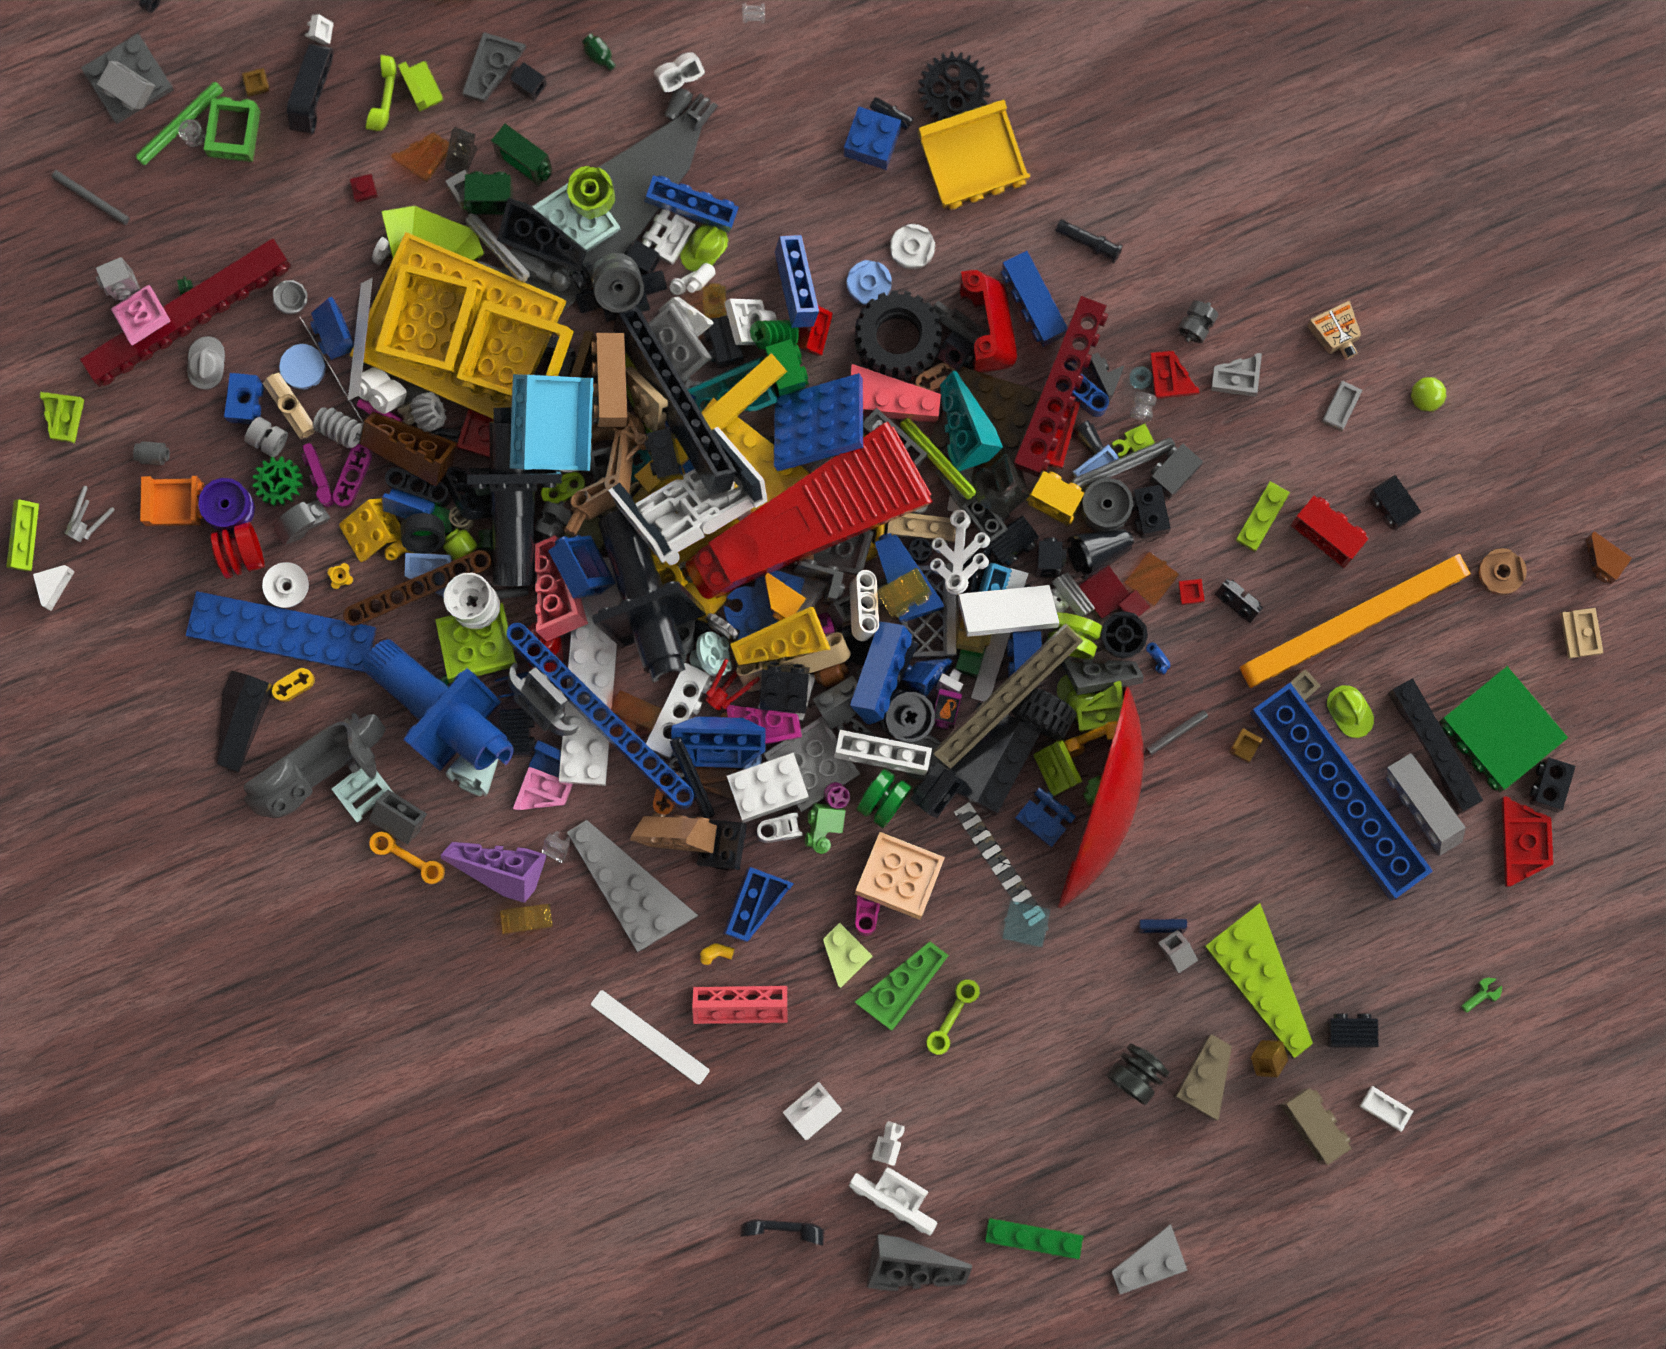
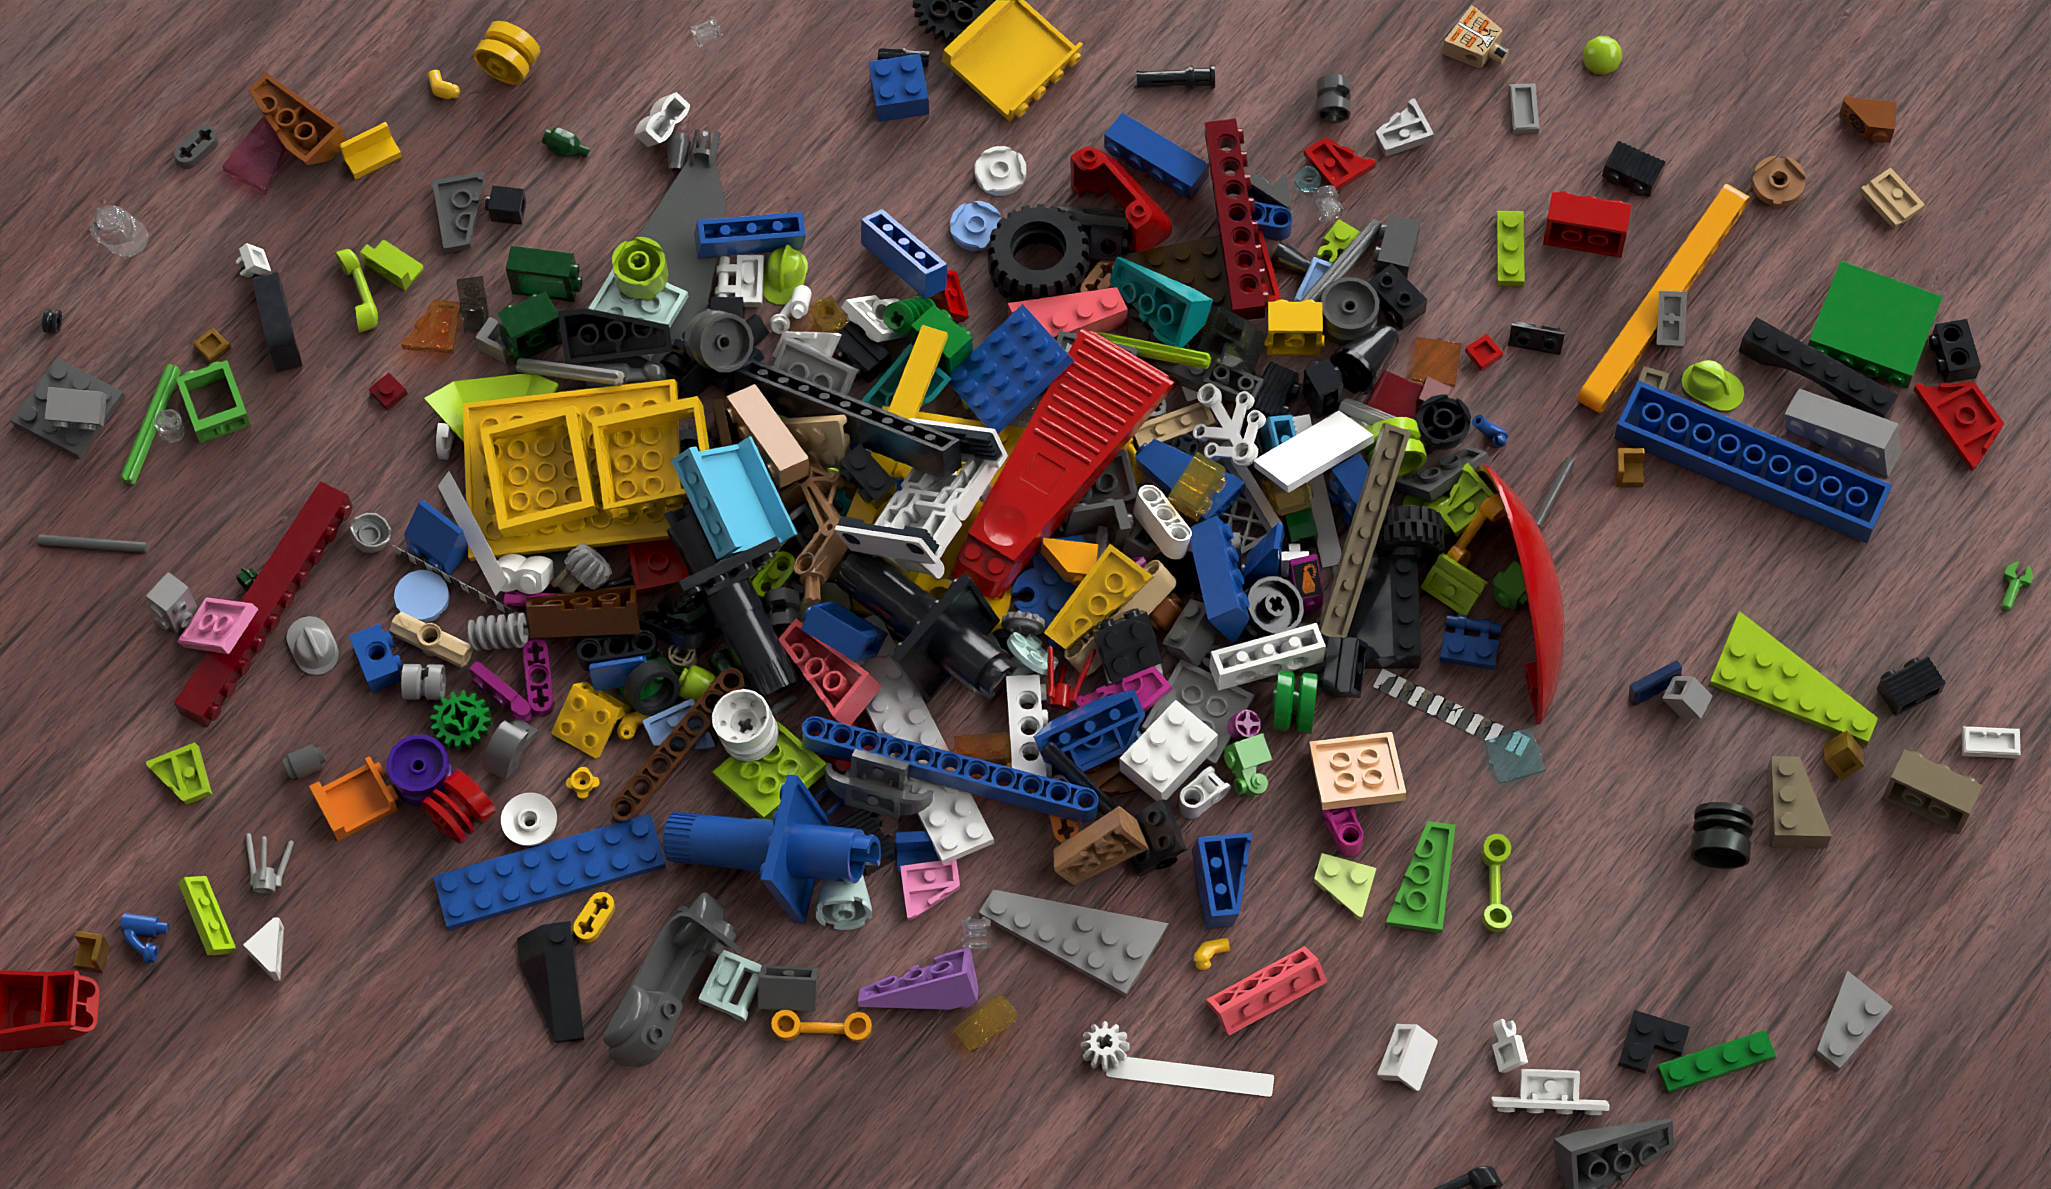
camera: 30 degrees left, 15 degrees down
(603, 976) = (1101, 1037): none -> white gear
(995, 1189) = (1648, 1033): none -> black plate
(1348, 644) = (1671, 318): none -> light grey hinge

